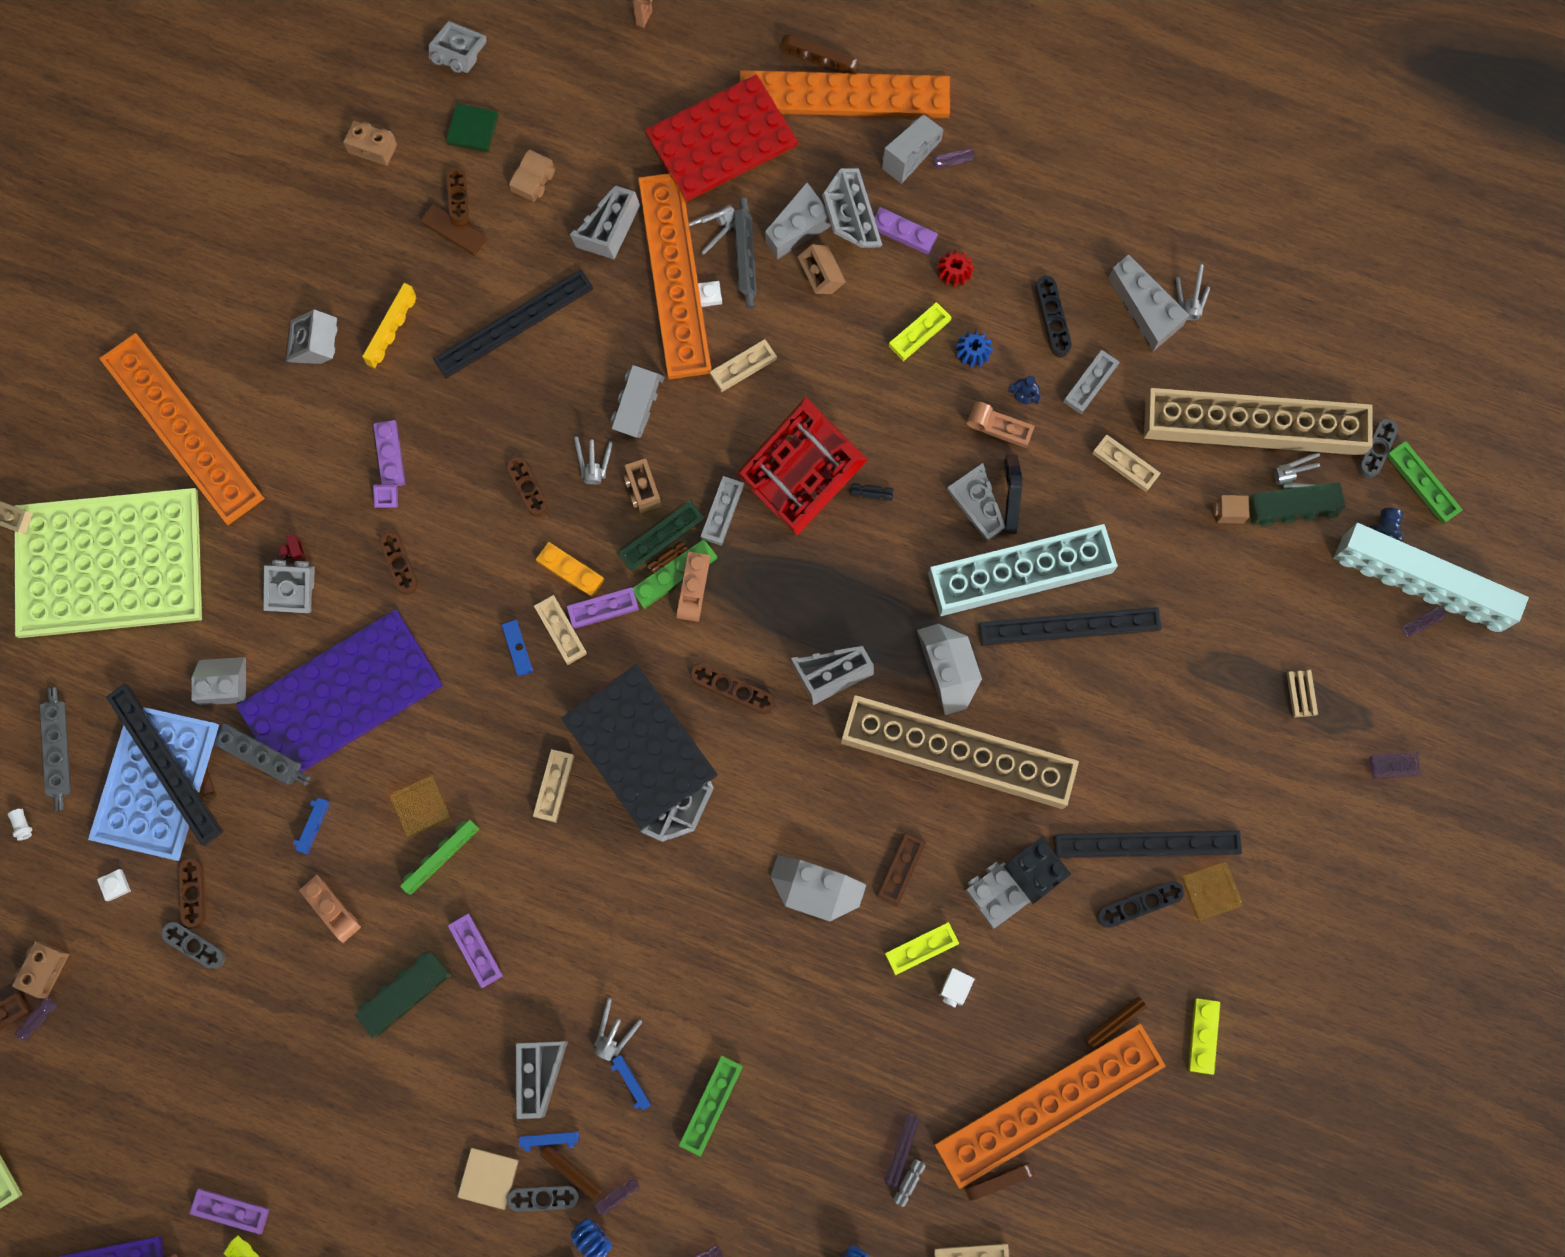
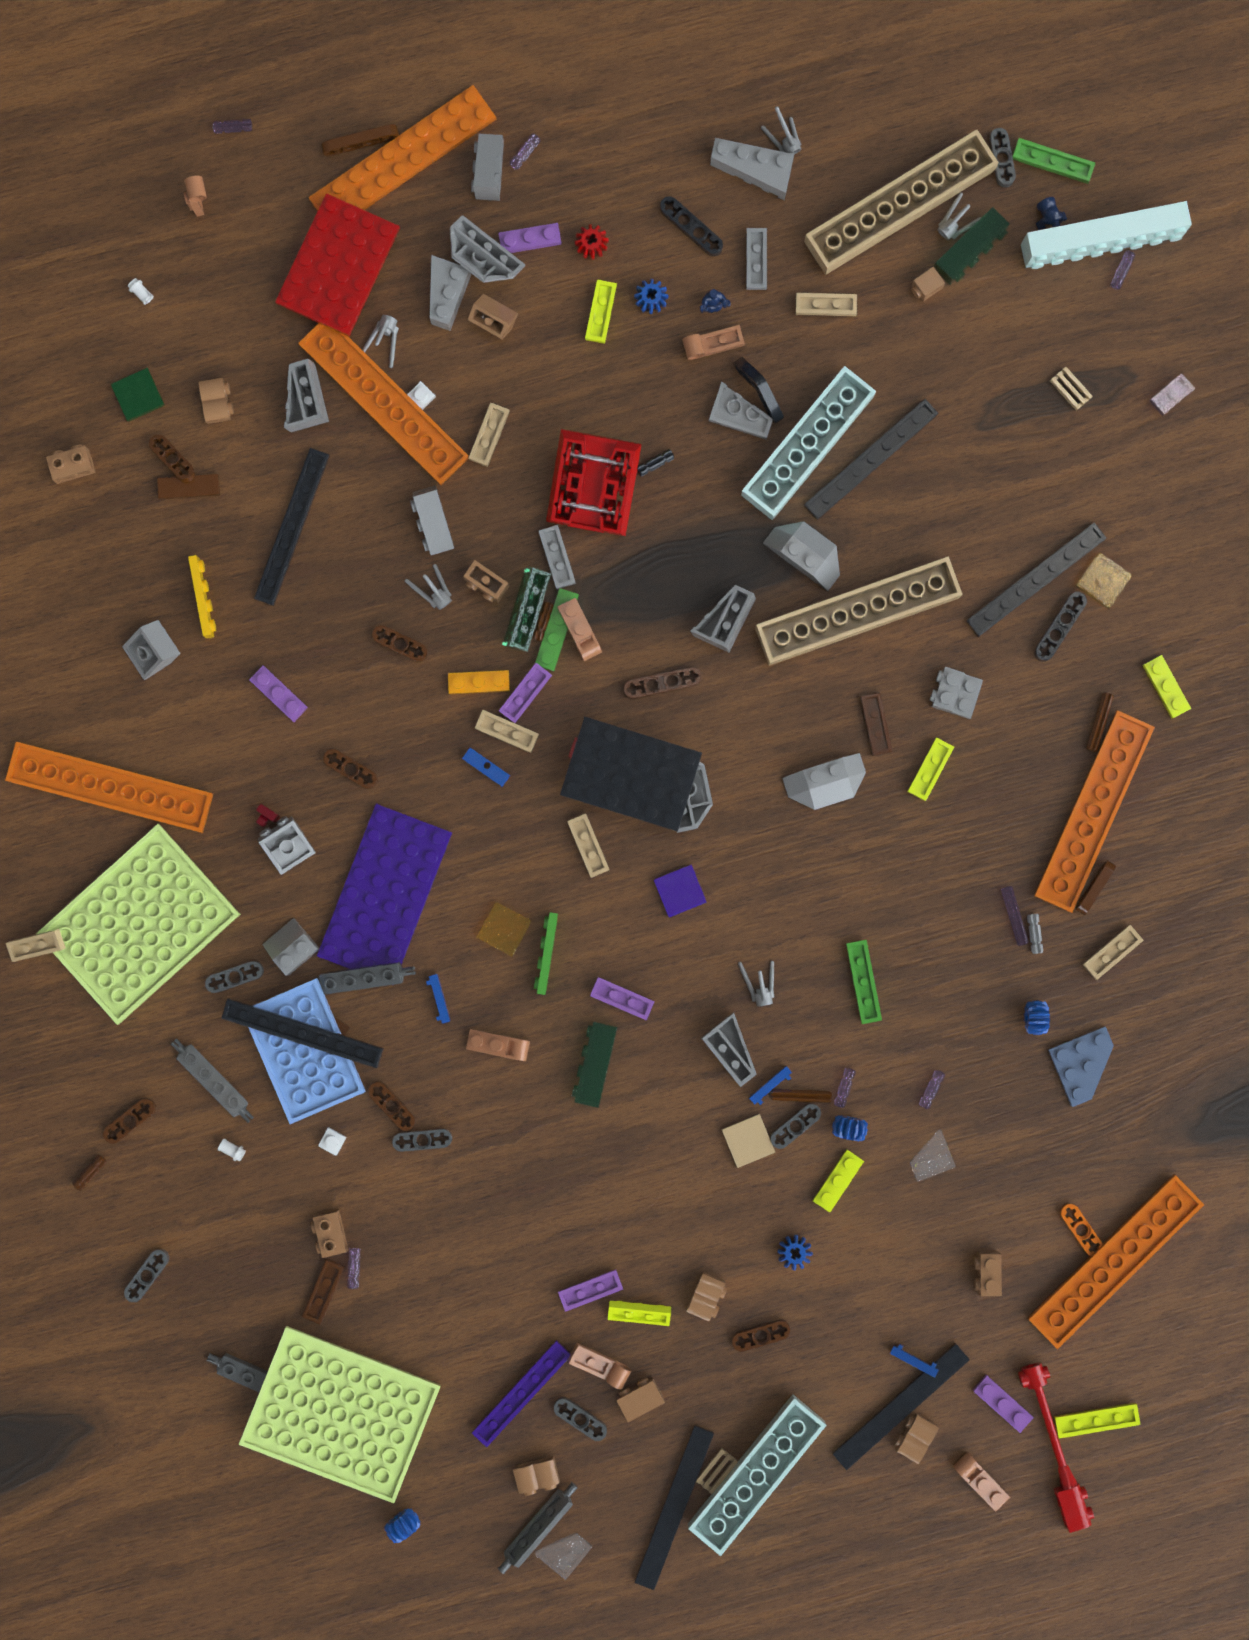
camera: 30 degrees left, 10 degrees up
(170, 670) = (218, 976): none -> dark grey beam
(385, 496) = (301, 726): medium lavender tile -> none
(456, 47) = (75, 338): light grey plate -> none
(540, 42) = (140, 291): none -> white pin
(605, 890) = (680, 891): none -> dark purple tile
(632, 1083) = (814, 1013): blue piece -> none
(745, 251) = (427, 347): dark grey plate -> none
(956, 988) = (973, 779): white brick -> none
(1037, 870) = (972, 655): black piece -> none

